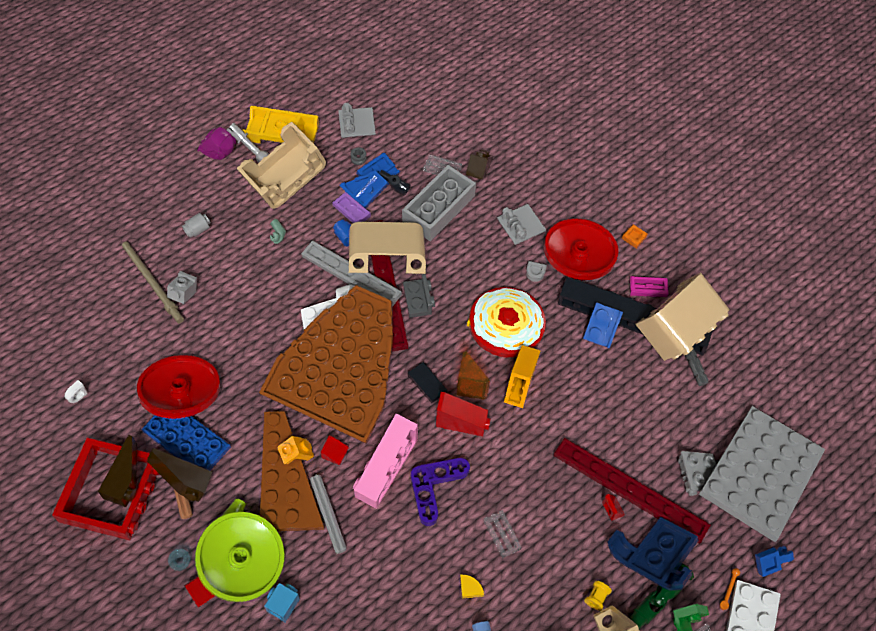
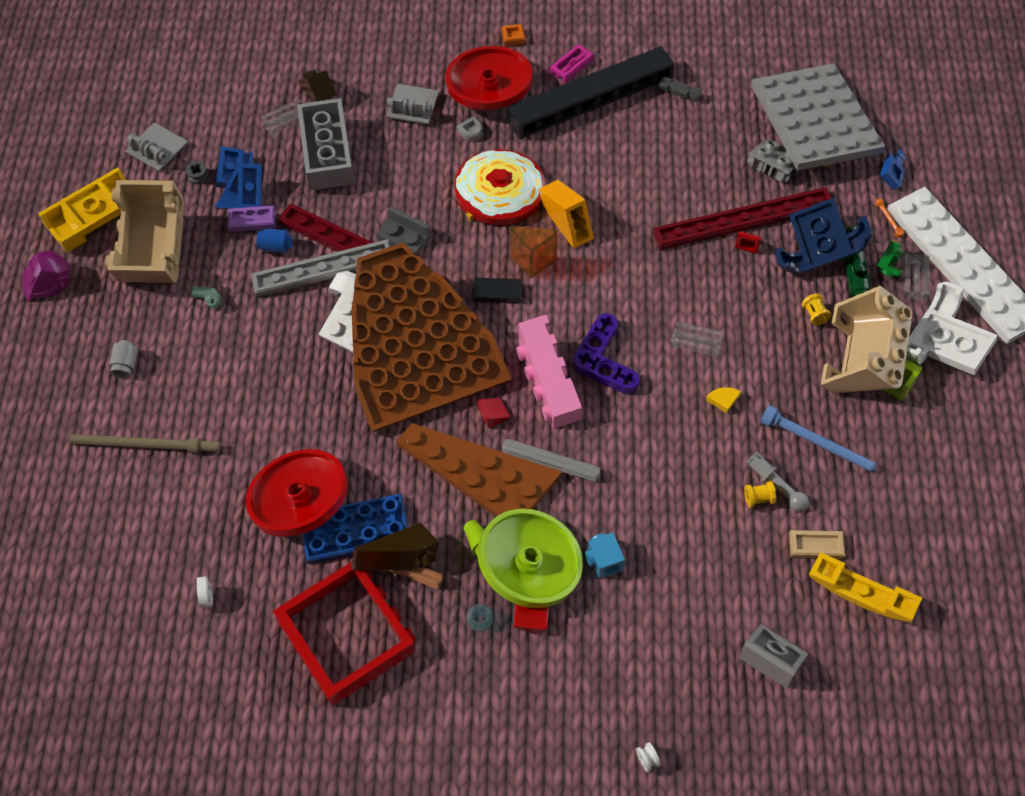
camera: 45 degrees left, 0 degrees up
(121, 479) = (355, 600): dark brown slope -> none
(182, 287) = (185, 417): light grey brick -> none
(240, 136) = (67, 246): light grey pin -> none
(294, 449) = (463, 440): light orange bracket -> none
(386, 239) = (315, 215): tan windscreen -> none
(396, 183) = (269, 161): black piece -> none
(461, 415) = (559, 285): red slope -> none
(603, 325) = (578, 118): blue plate -> none
(684, 318) = (638, 55): tan windscreen -> none

